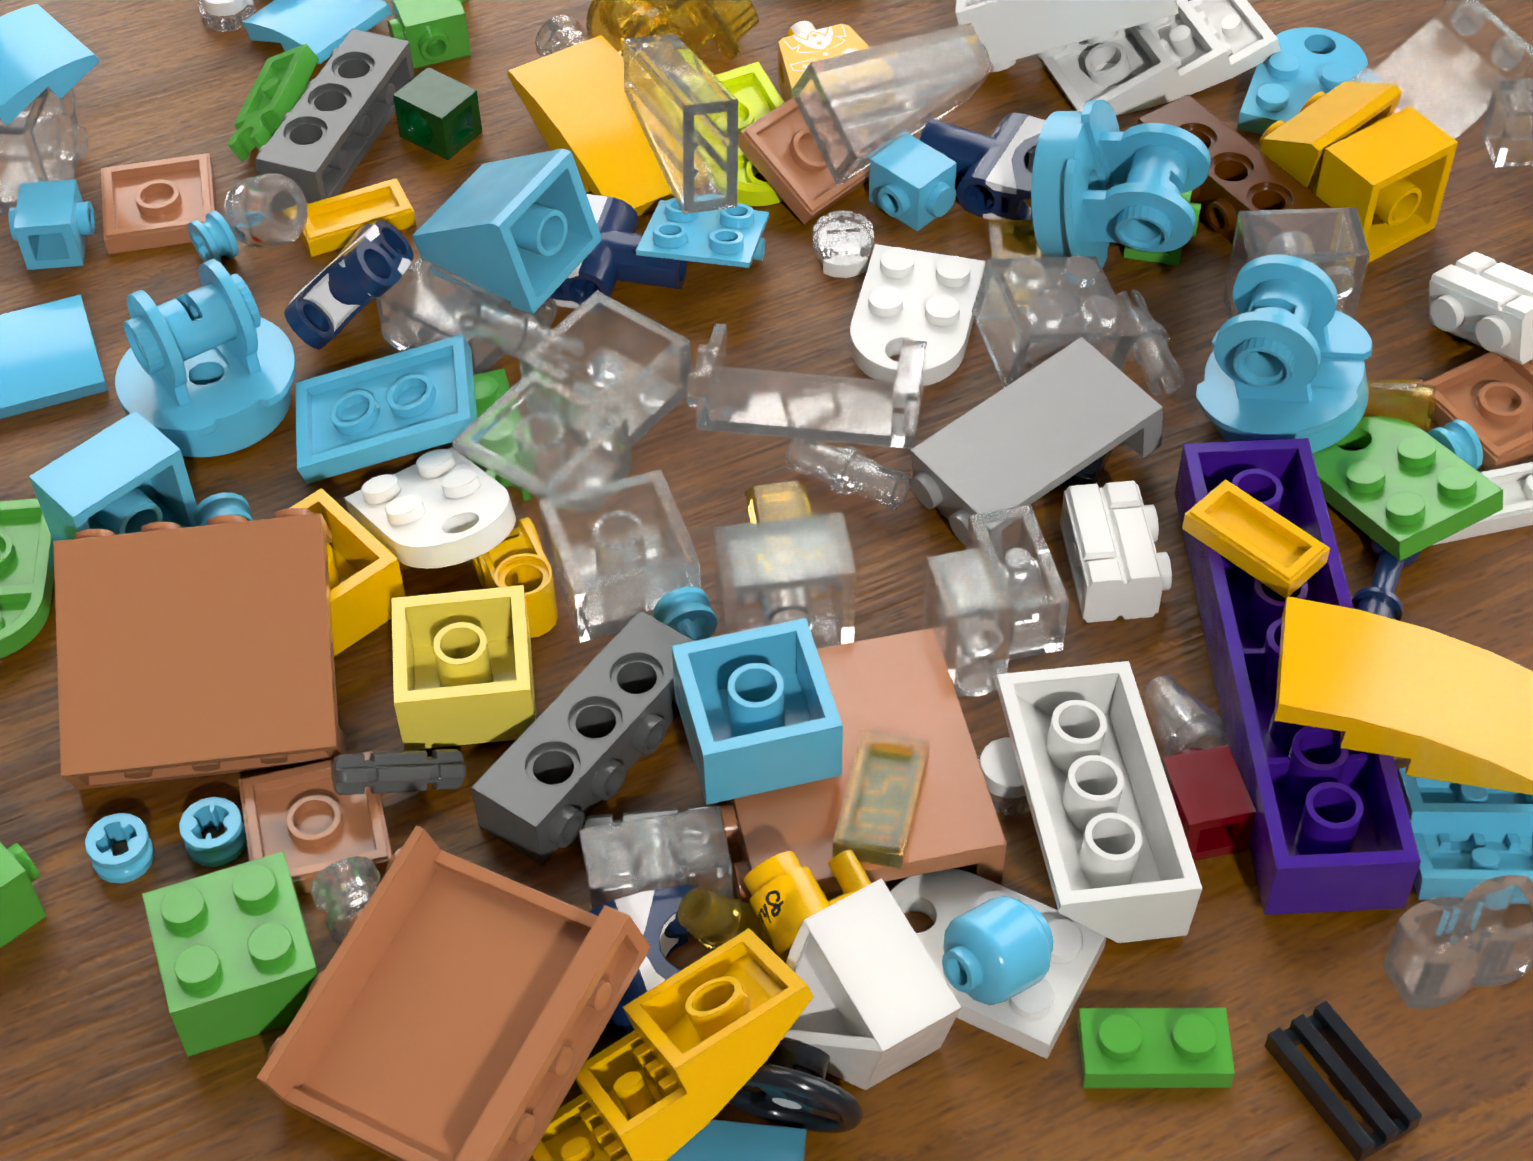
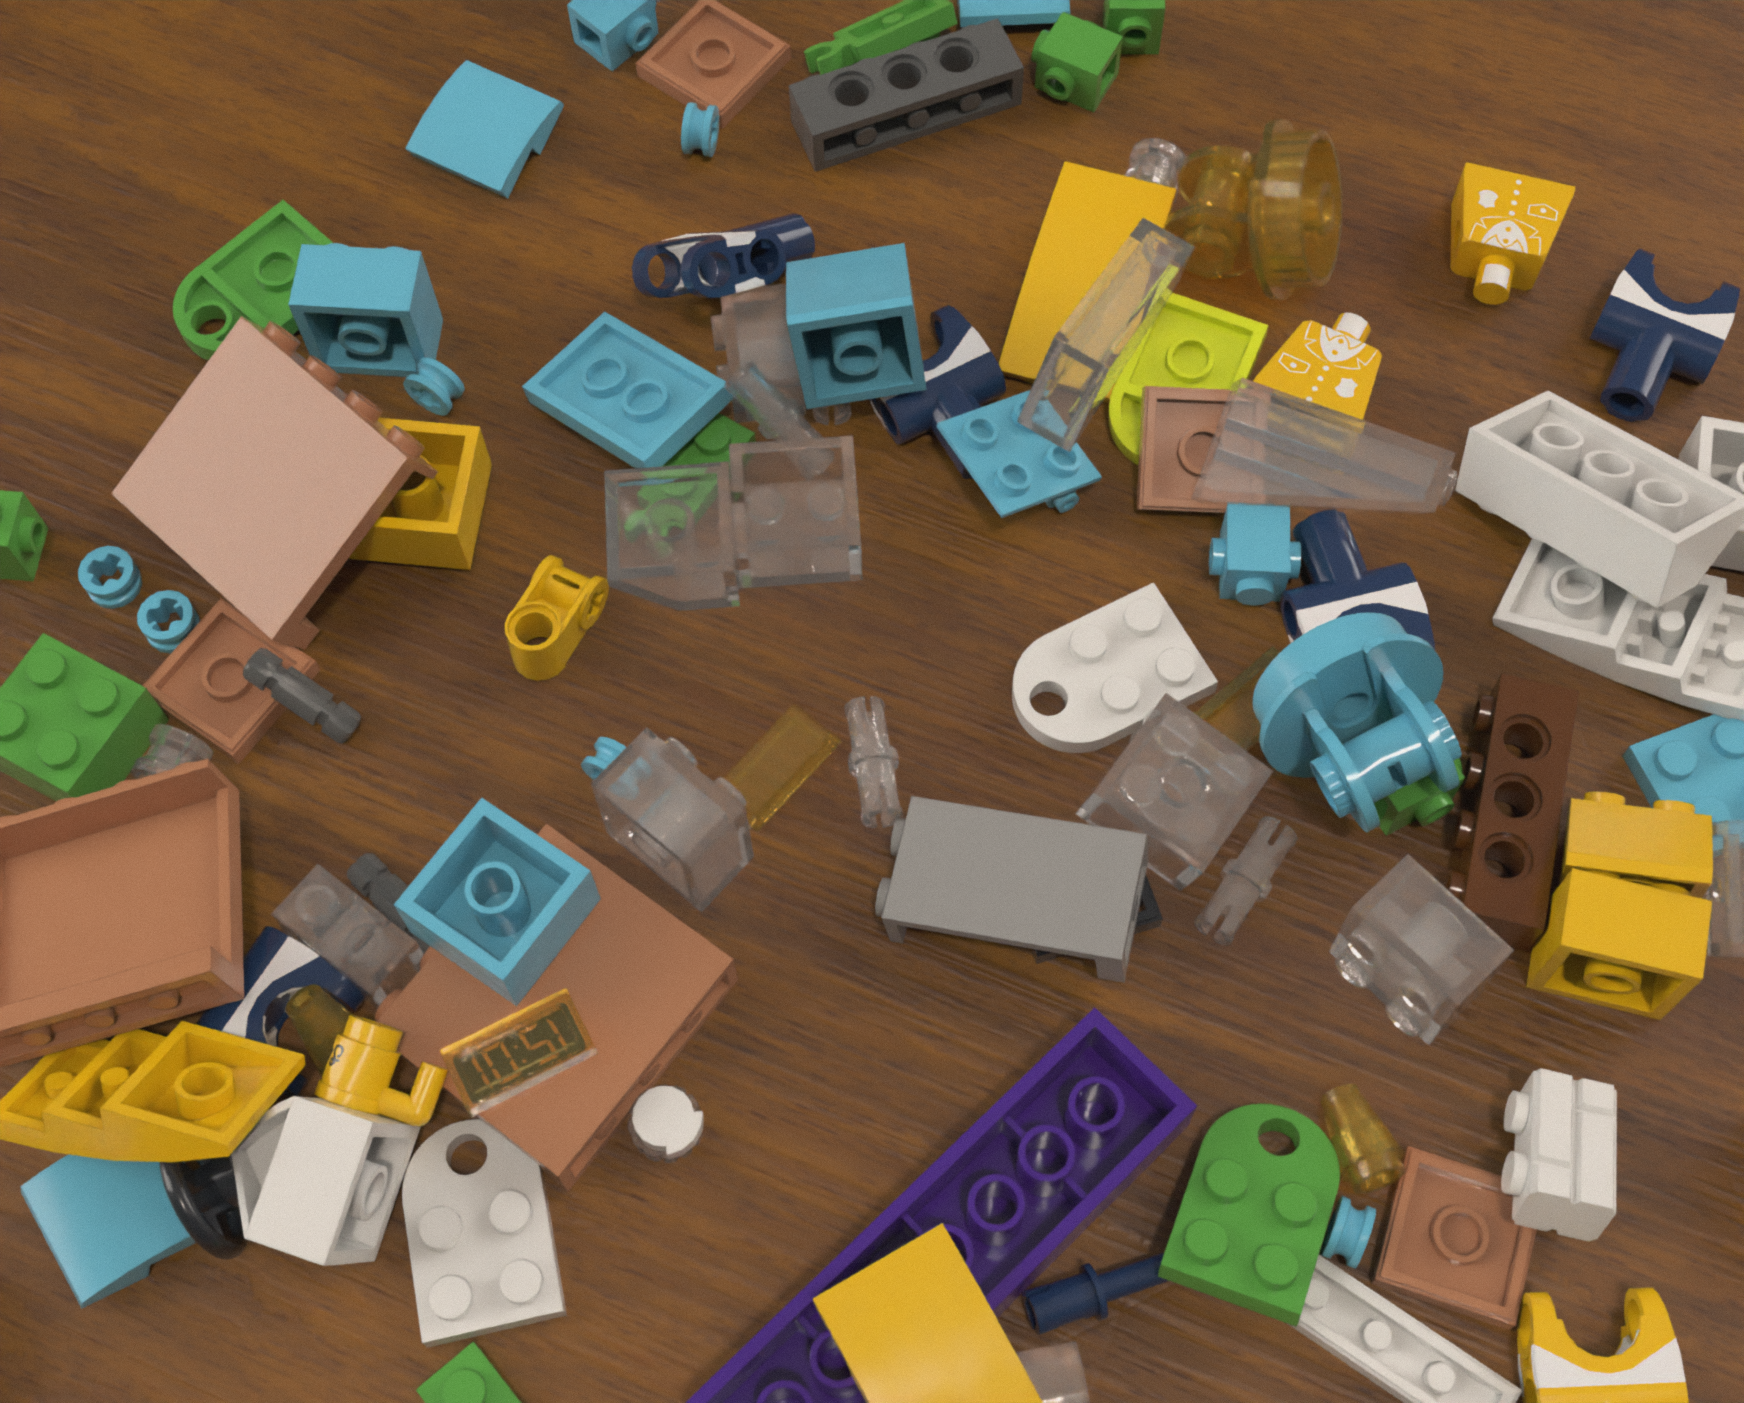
camera: 50 degrees right, 15 degrees up
(206, 366) = (547, 248): medium azure piece -> none
(266, 210) = (752, 155): clear head -> none
(337, 218) = (825, 195): yellow tile -> none
(435, 510) = (551, 507): white plate -> none
(437, 113) = (982, 153): dark green brick -> none
(462, 667) = (420, 659): light yellow brick -> none
(617, 551) = (618, 669): clear brick -> none
(619, 696) = (347, 785): dark grey brick -> none
(807, 403) = (917, 672): clear panel -> none
(843, 243) = (1133, 556): clear piece -> none
(971, 617) = (757, 980): clear brick -> none
(997, 950) = (442, 1245): medium azure head -> none
(1029, 576) = (845, 982): clear brick -> none
(1101, 801) = (658, 1209): white slope -> none
(1114, 551) = (963, 1030): white brick -> none
(1181, 717) = (824, 1219): clear cone -> none
(1210, 801) = (746, 1288): dark red brick -> none
(1256, 538) = (1024, 1146): yellow tile -> none
(1287, 358) = (1295, 987): medium azure piece -> none

